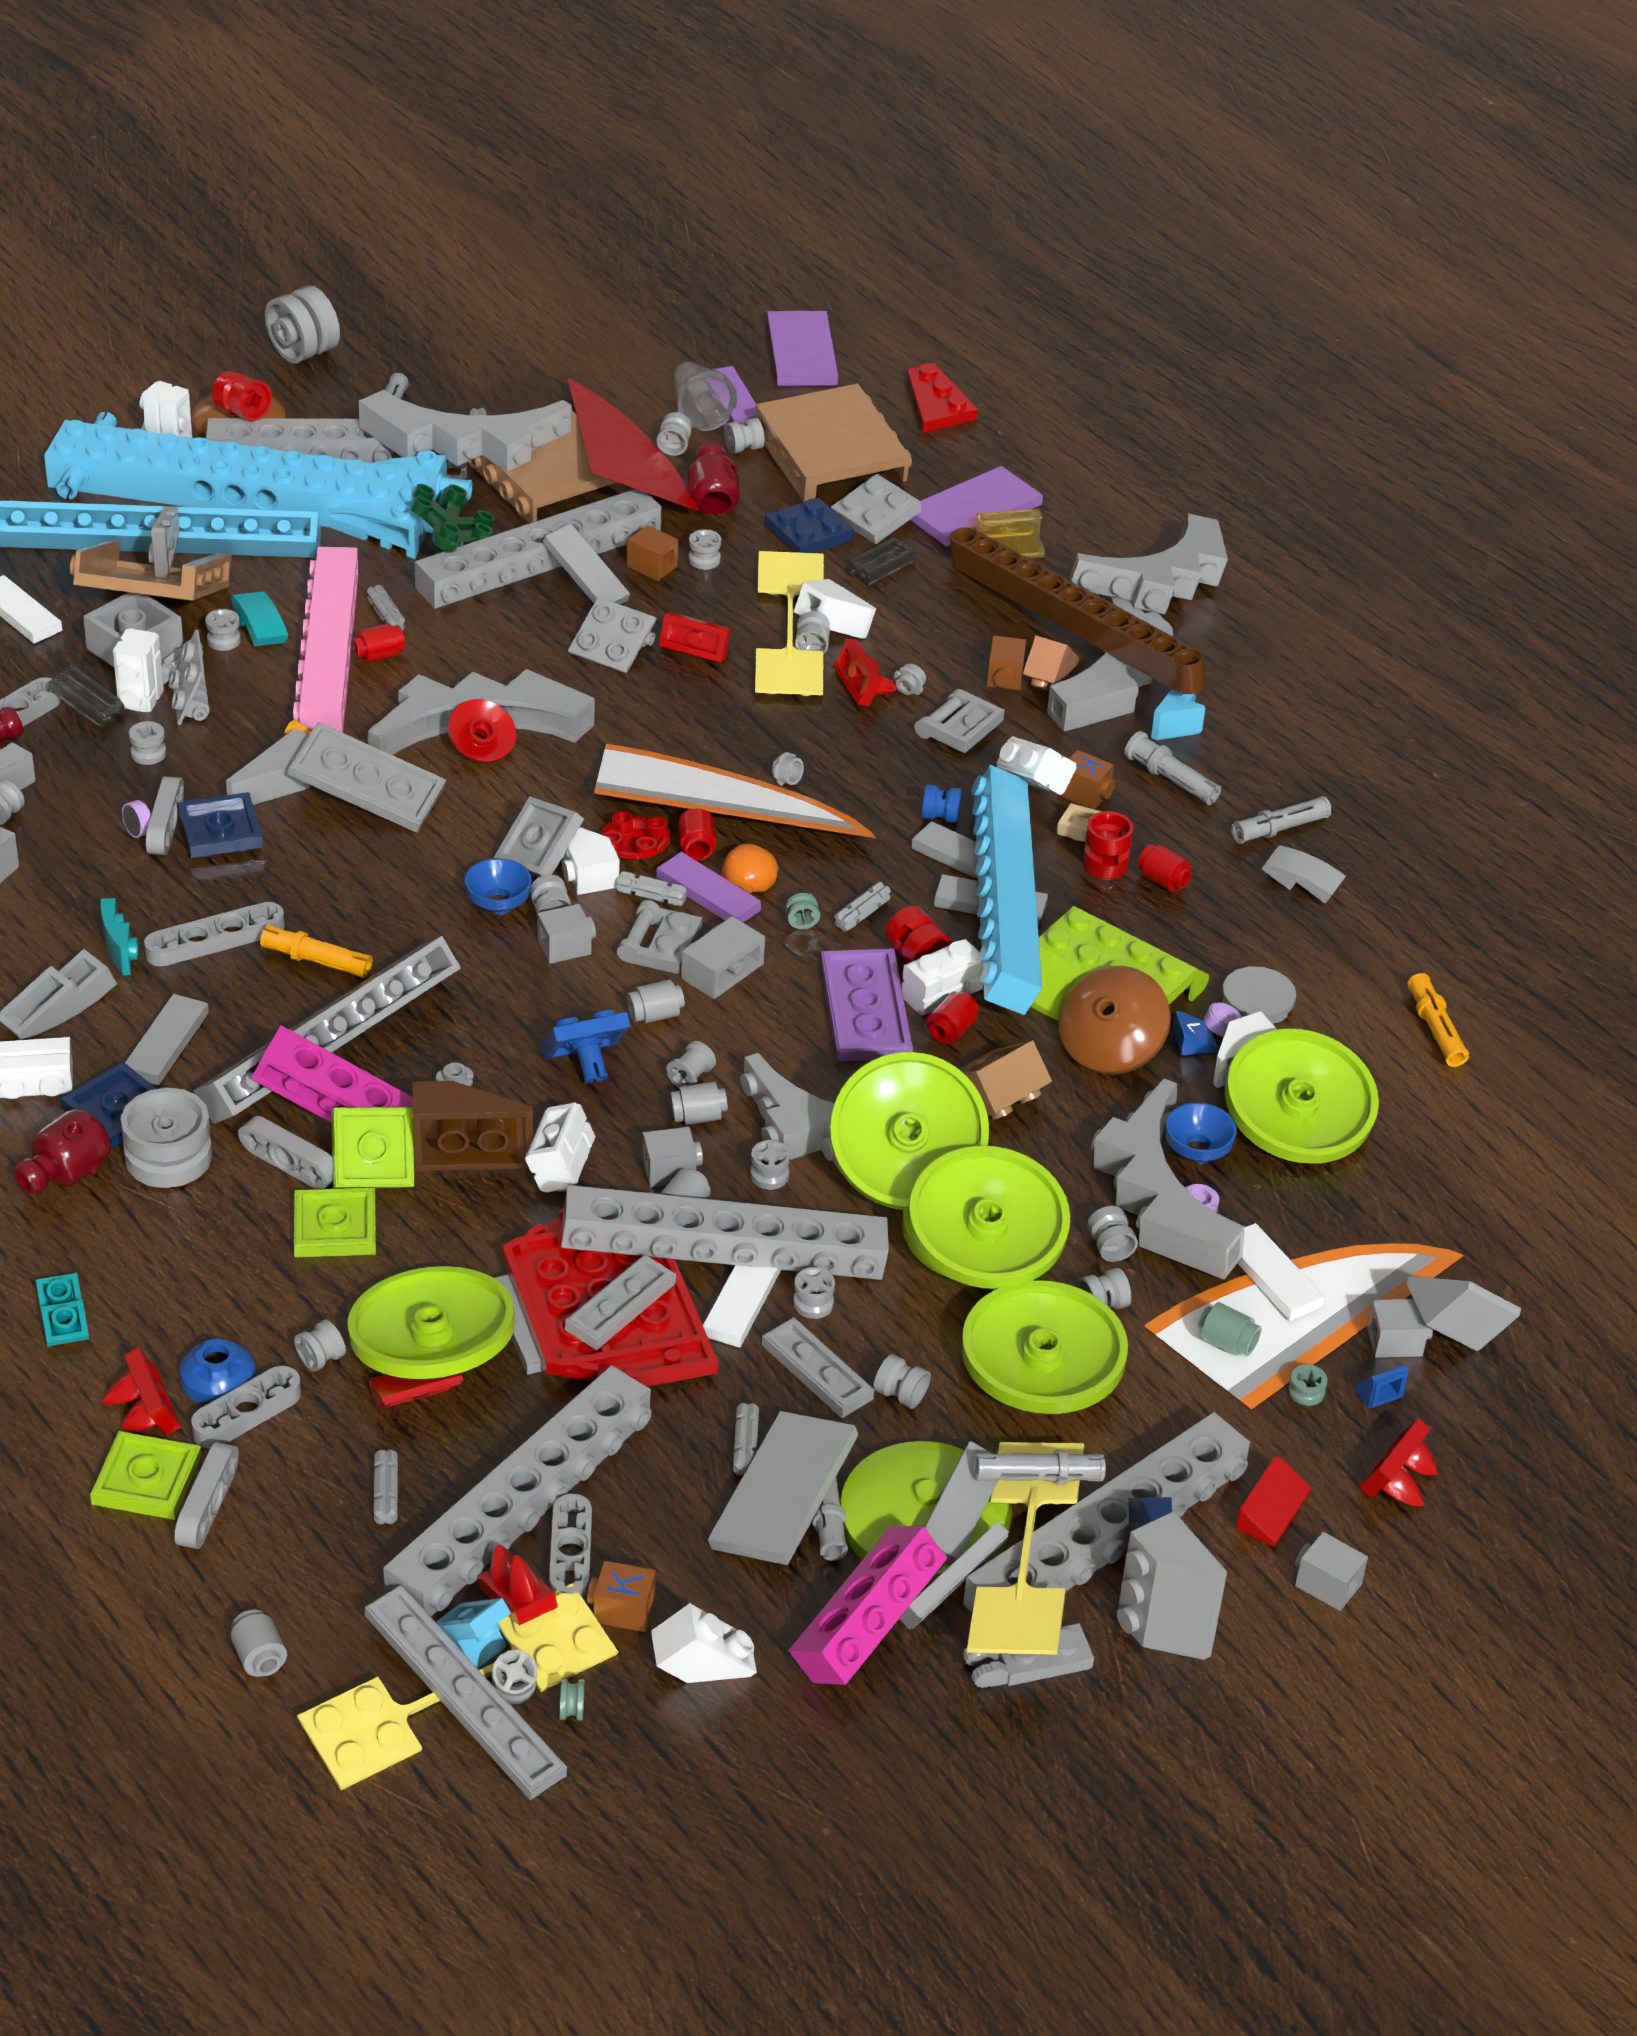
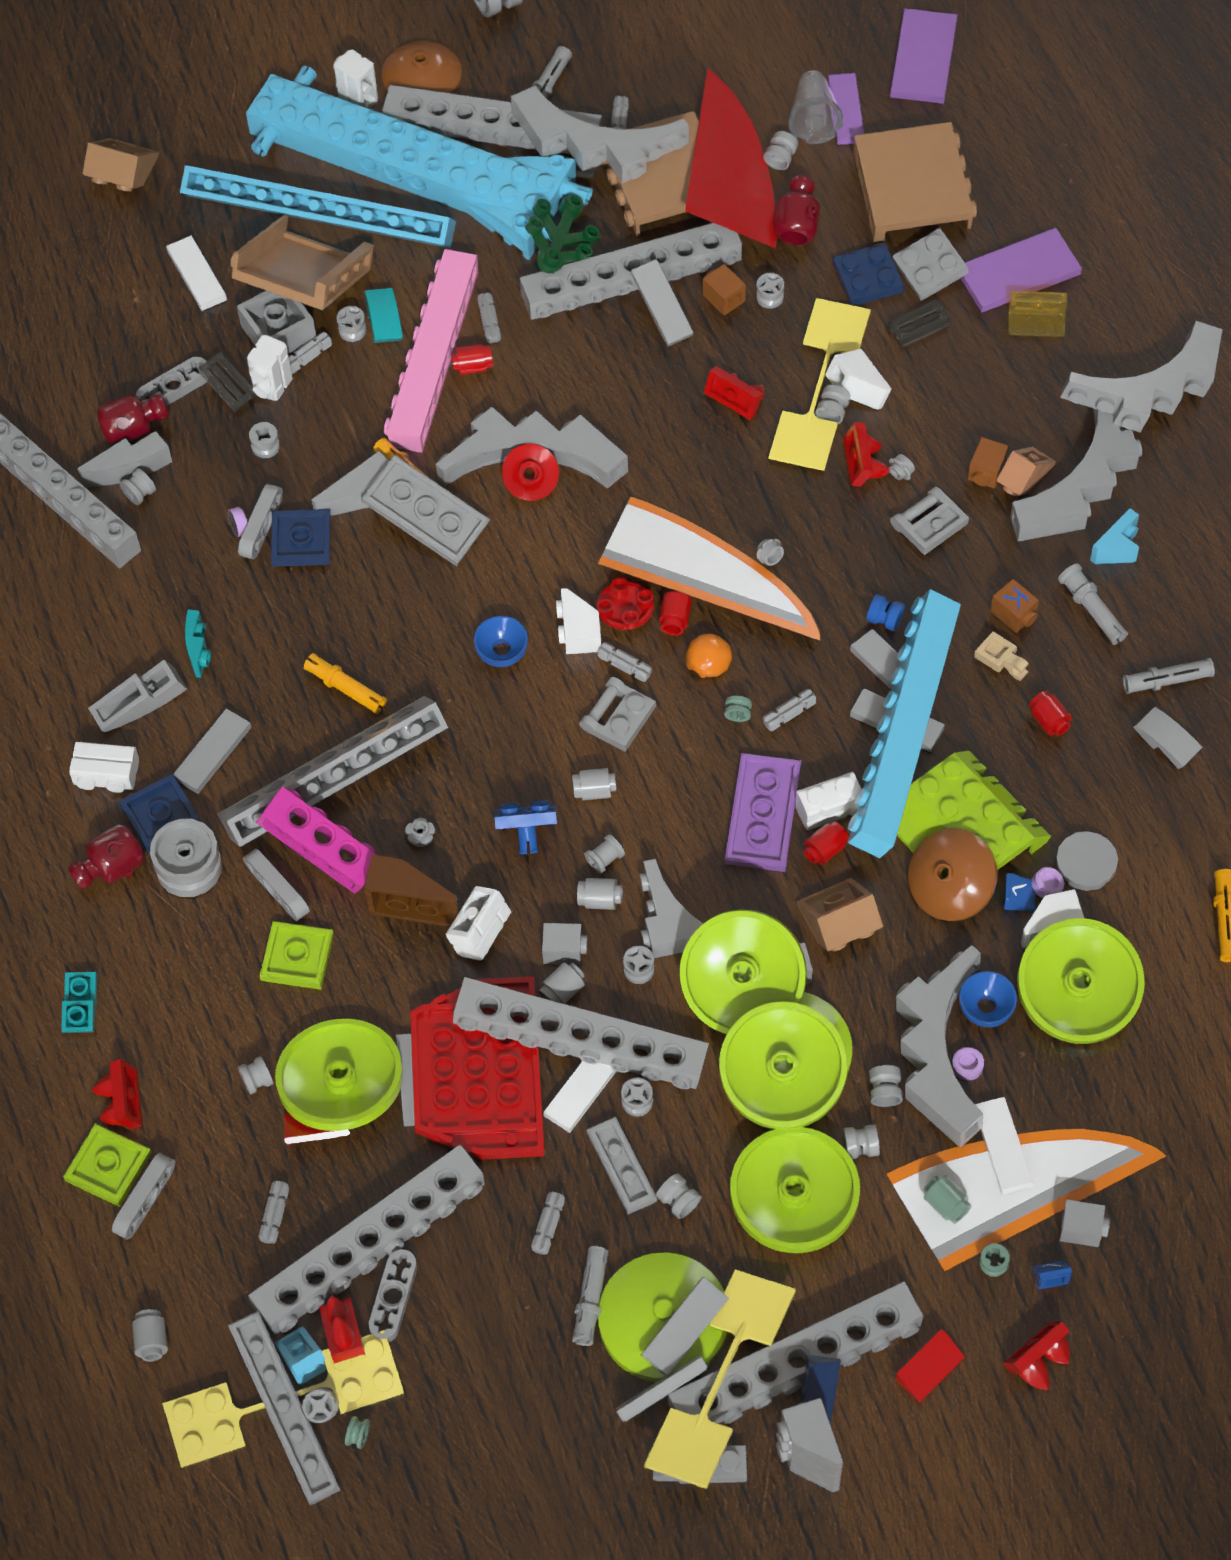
camera: 20 degrees right, 20 degrees up
(164, 541) = (317, 233): light grey wing -> none
(189, 683) = (311, 385): light grey hinge -> none
(210, 1381) = (181, 1093): blue piece -> none
(213, 930) = (273, 655): light grey beam -> none
(241, 395) = (419, 69): red wheel -> none
(255, 1391) = (216, 1117): light grey beam -> none
(372, 1147) = (335, 899): lime tile -> none
(540, 836) = (542, 603): light grey plate -> none
(549, 893) = (539, 663): light grey wheel -> none
(565, 933) = (542, 700): light grey brick -> none
(613, 635) = (666, 379): light grey hinge -> none
(620, 1302) = (484, 1083): light grey tile -> none
(623, 1595) = (417, 1350): dark orange brick -> none
(702, 1647) = (462, 1409): white slope -> none
(709, 888) = (670, 669): medium lavender tile -> none
(722, 957) = (659, 747): light grey brick -> none
(744, 435) = (839, 161): light grey wheel -> none
(783, 1488) = (559, 1279): light grey tile -> none
(867, 1605) = (588, 1403): dark pink brick -> none
(914, 934) = (820, 757): red wheel -> none
(938, 398) = (1026, 135): red wing -> none
(1036, 764) = (971, 591): white brick -> none
(1050, 1467) = (749, 1312): light grey pin -> none
(1078, 611) = (1060, 423): reddish brown beam -> none
(1108, 845) = (1008, 684): red wheel -> none
(1330, 1570) = (950, 1440): light grey brick -> none
(1461, 1309) = (1131, 1222): light grey slope -> none

